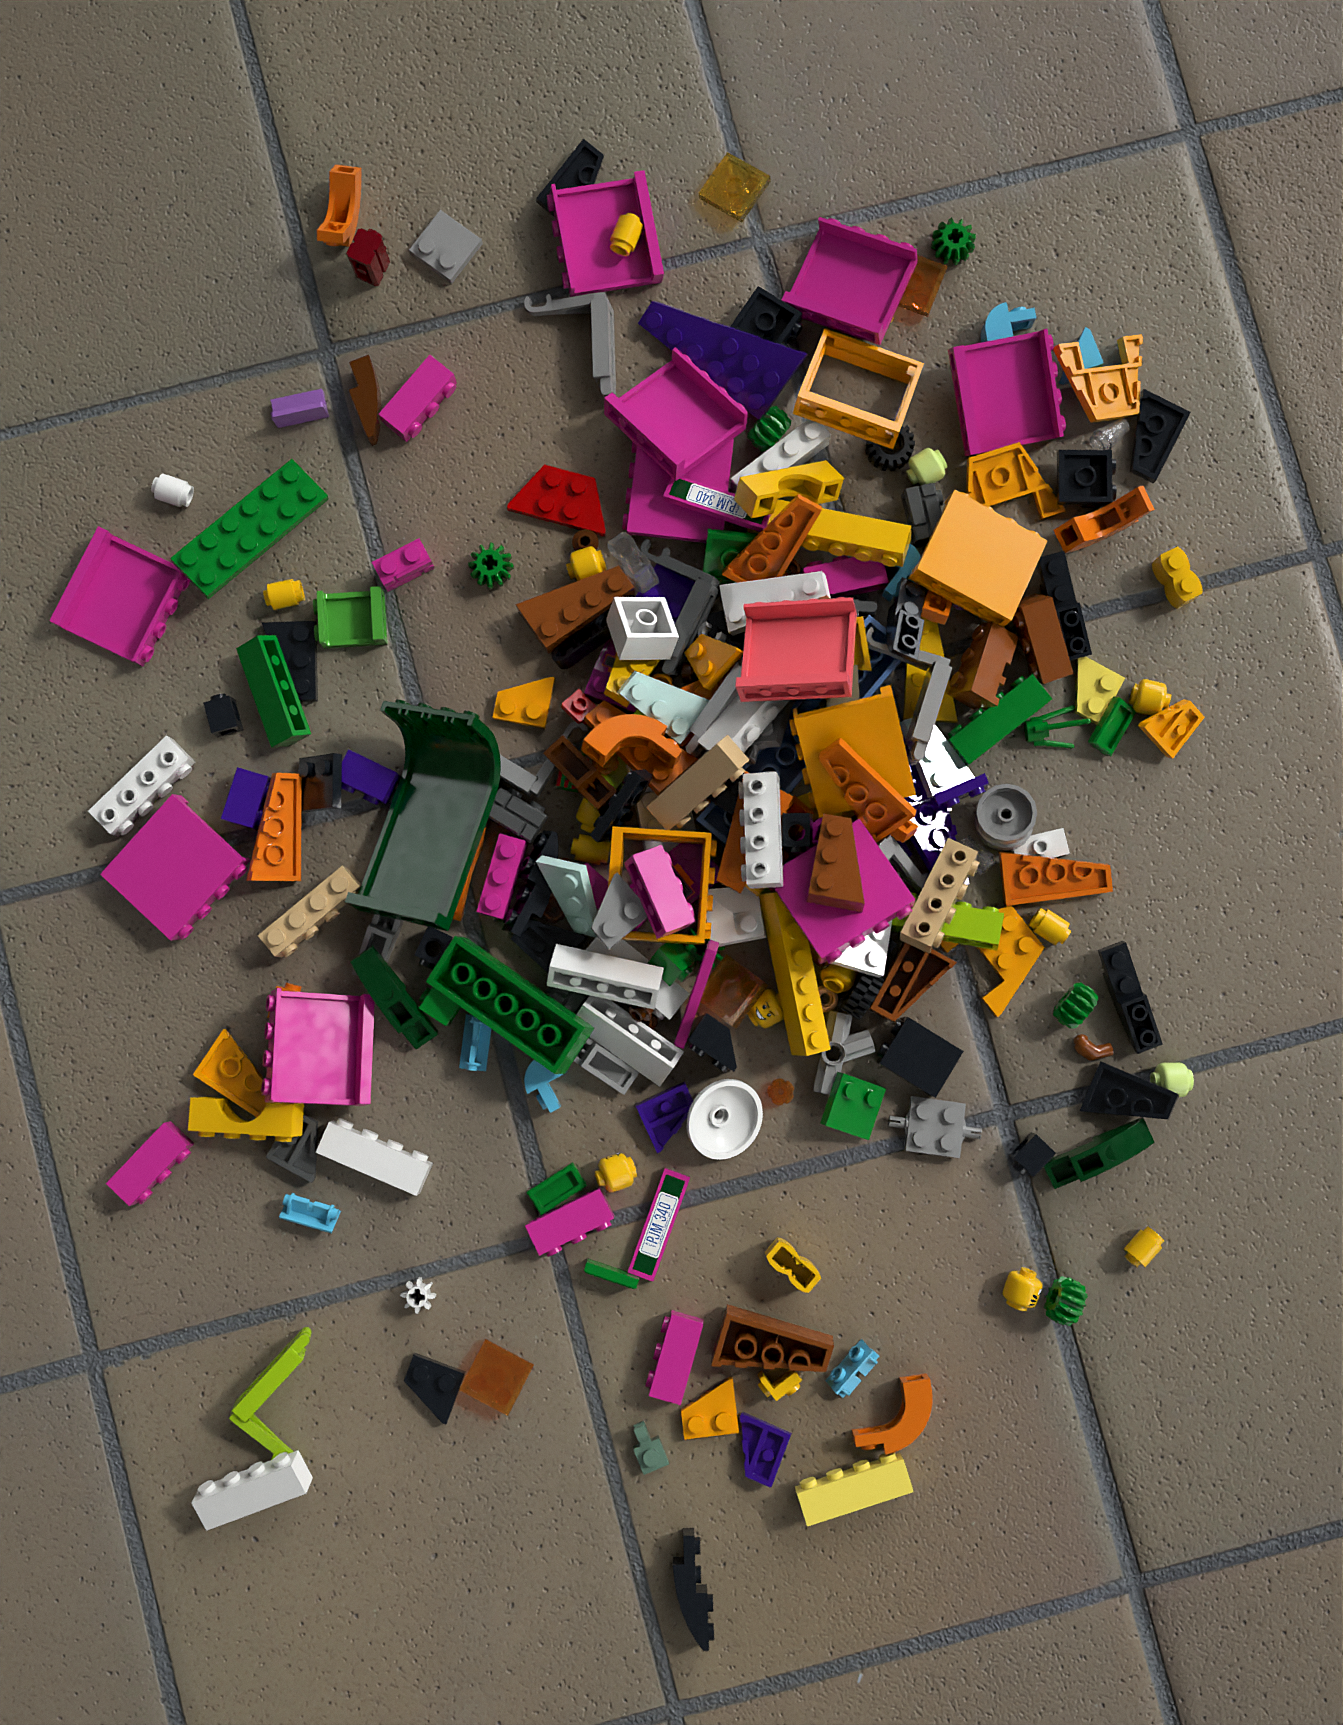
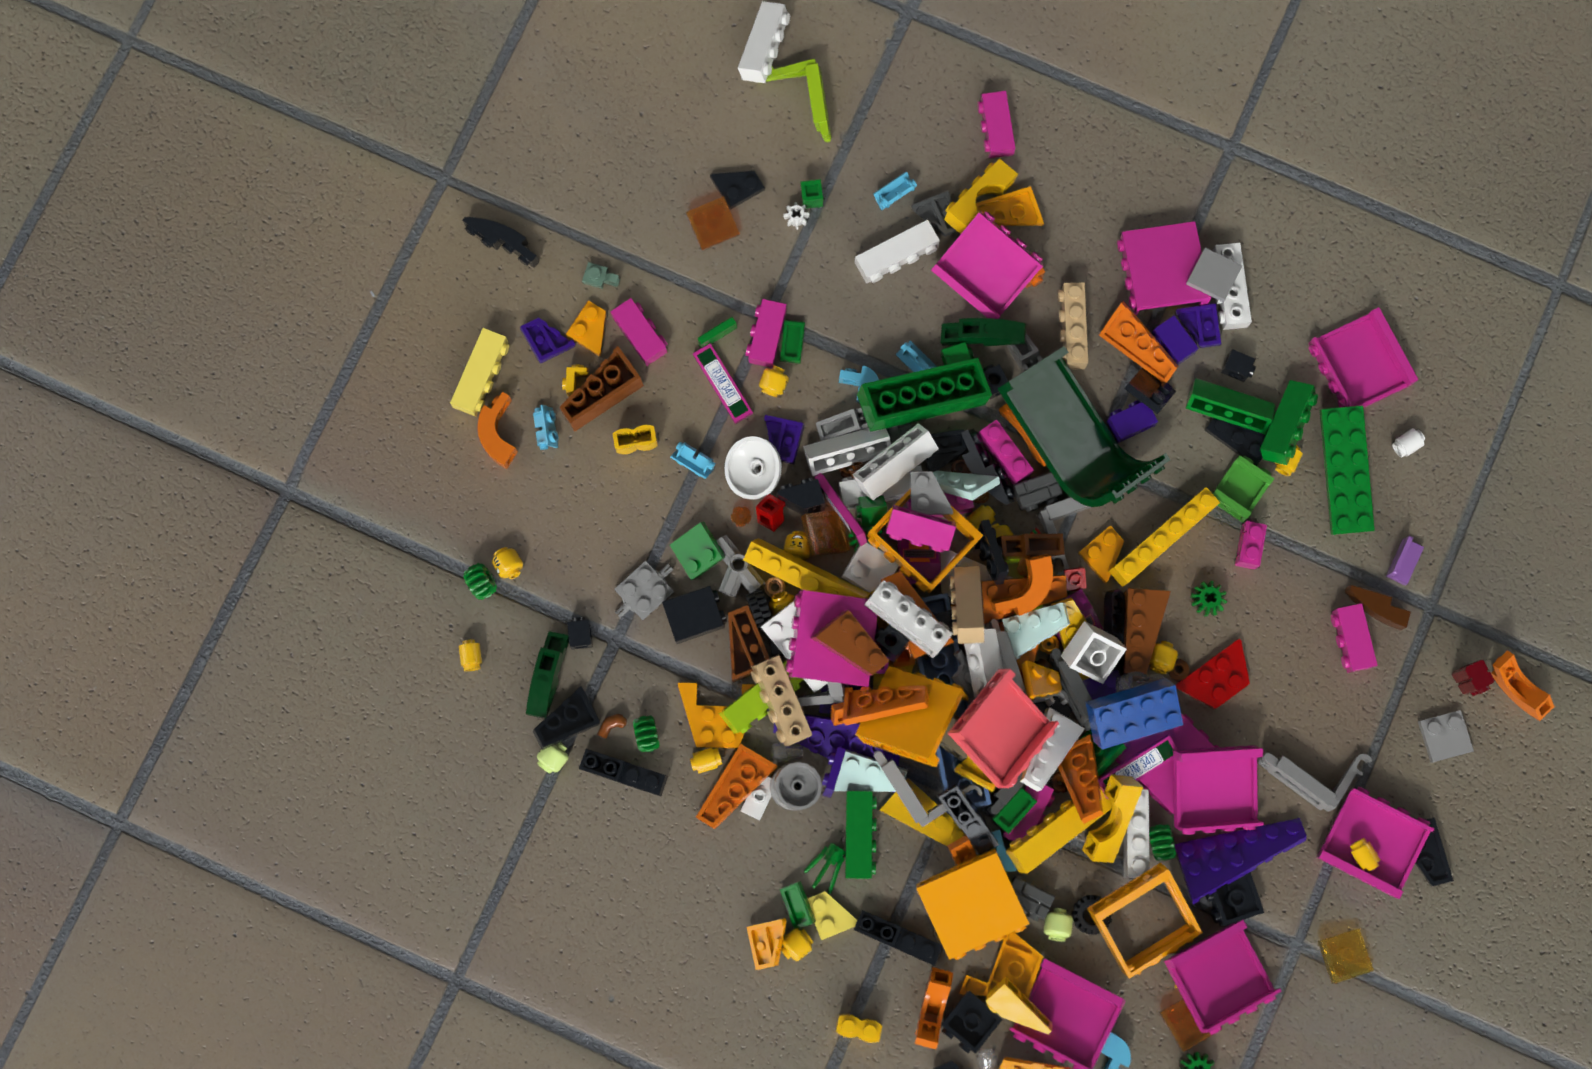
camera: 130 degrees right, 5 degrees down
(145, 808) = (1214, 274): none -> light grey tile
(207, 785) = (1201, 324): none -> dark purple wing
(245, 619) = (1289, 422): none -> green brick
(382, 1298) = (812, 193): none -> green panel
(463, 653) = (1164, 537): none -> yellow brick
(671, 542) = (1134, 713): none -> blue brick
(755, 1063) = (770, 512): none -> red brick
(764, 1178) = (700, 465): none -> medium azure hinge
(857, 586) = (1014, 810): none -> green tile
(983, 666) = (901, 853): dark orange wedge -> none
(1039, 445) = (1015, 1006): none -> yellow slope
(1042, 638) = (890, 904): dark orange wedge -> none

